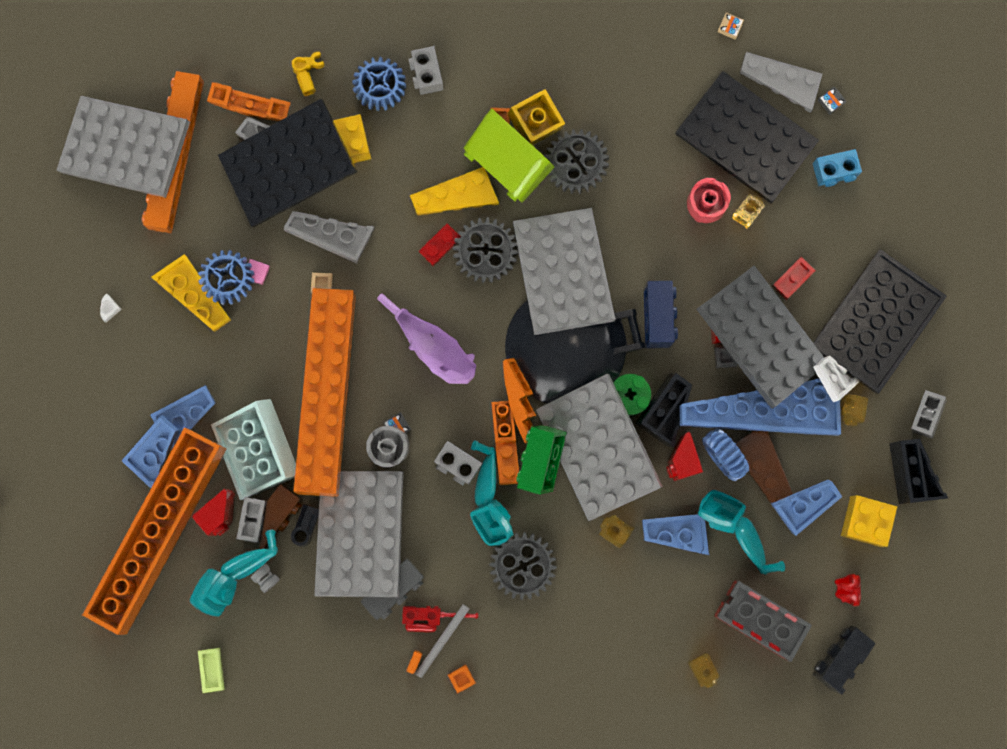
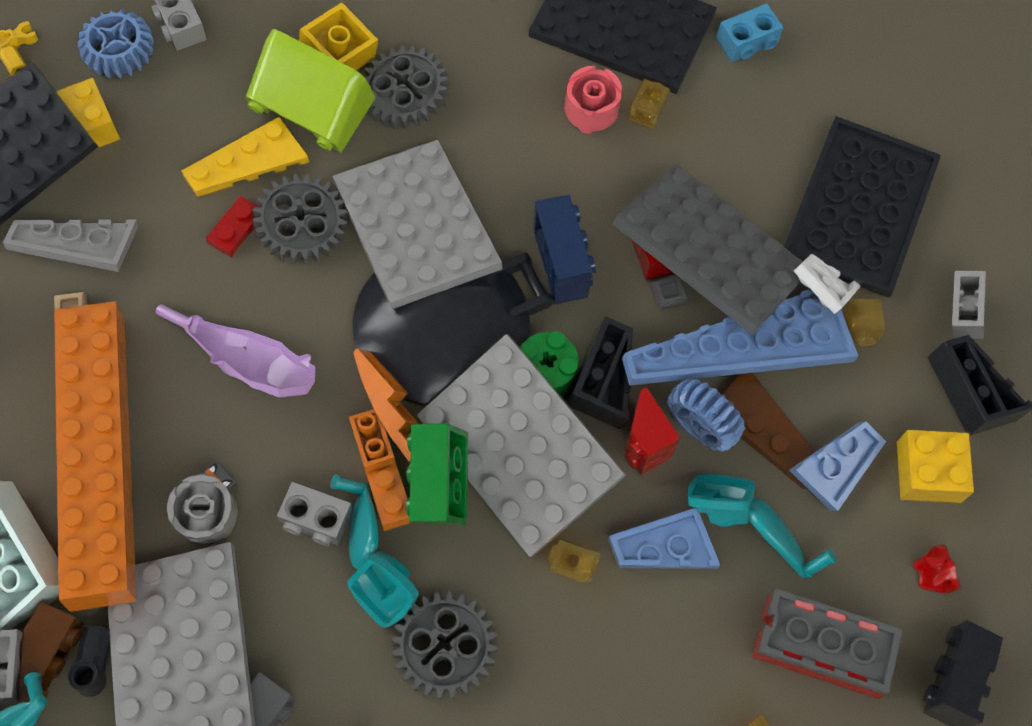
camera: 15 degrees left, 15 degrees down
(793, 278) = (733, 173): red plate -> none

